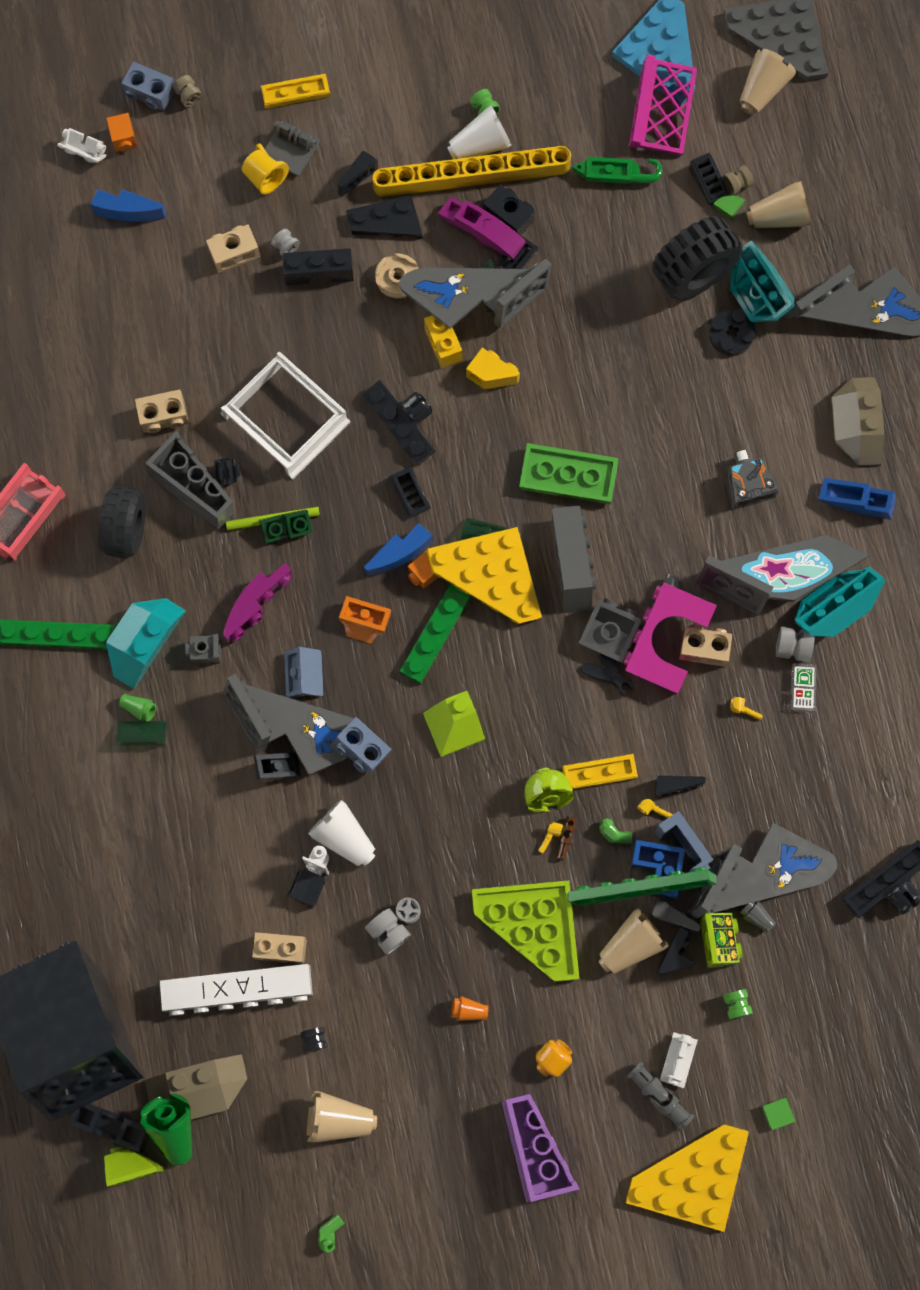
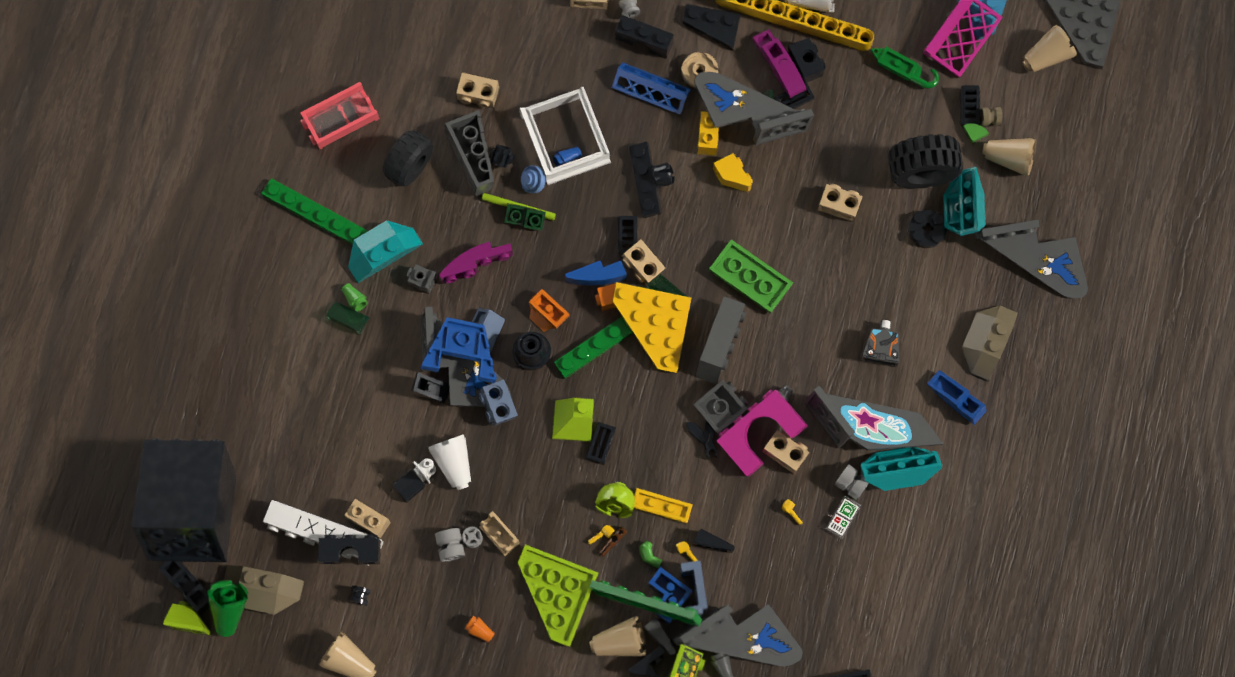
camera: 25 degrees right, 0 degrees up
(258, 1001) = (332, 548): none -> black arch
(274, 480) = (533, 179): none -> medium blue plate
(291, 695) = (463, 341): none -> blue wing
(298, 437) = (567, 156): none -> blue cone
(353, 311) = (651, 81): none -> blue fence
(369, 680) = (531, 358): none -> black piece
(436, 891) = (499, 533): none -> tan hinge
(445, 507) = (647, 258): none -> tan brick
(500, 755) = (596, 458): none -> black tile
(626, 353) = (838, 207): none -> tan brick

